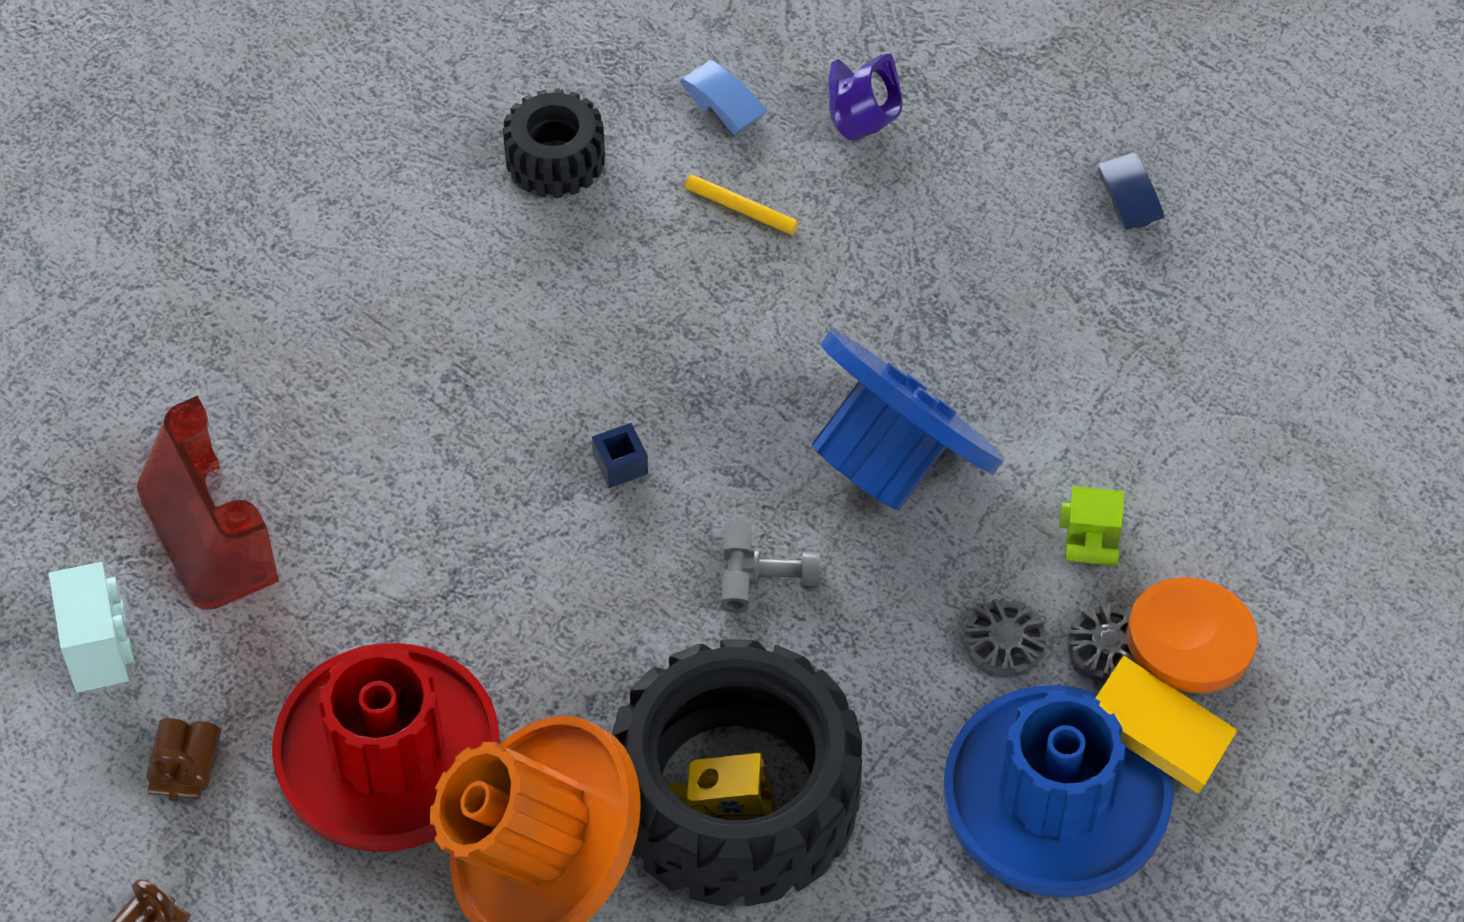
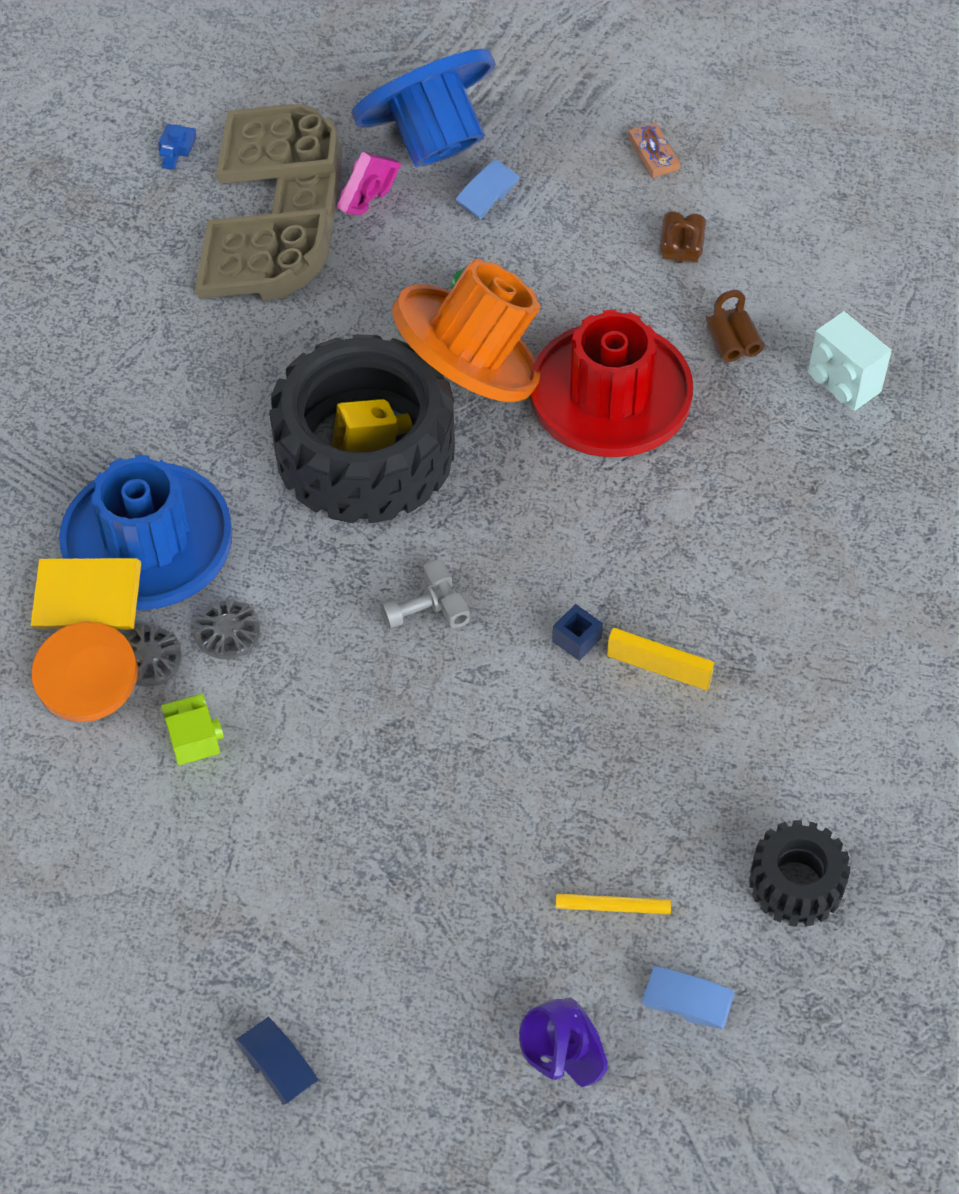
camera: 155 degrees right, 0 degrees up
(214, 549) = (804, 438): clear red windscreen -> none
(548, 395) = (660, 659): none -> yellow tile
(892, 428) = (362, 705): blue piece -> none

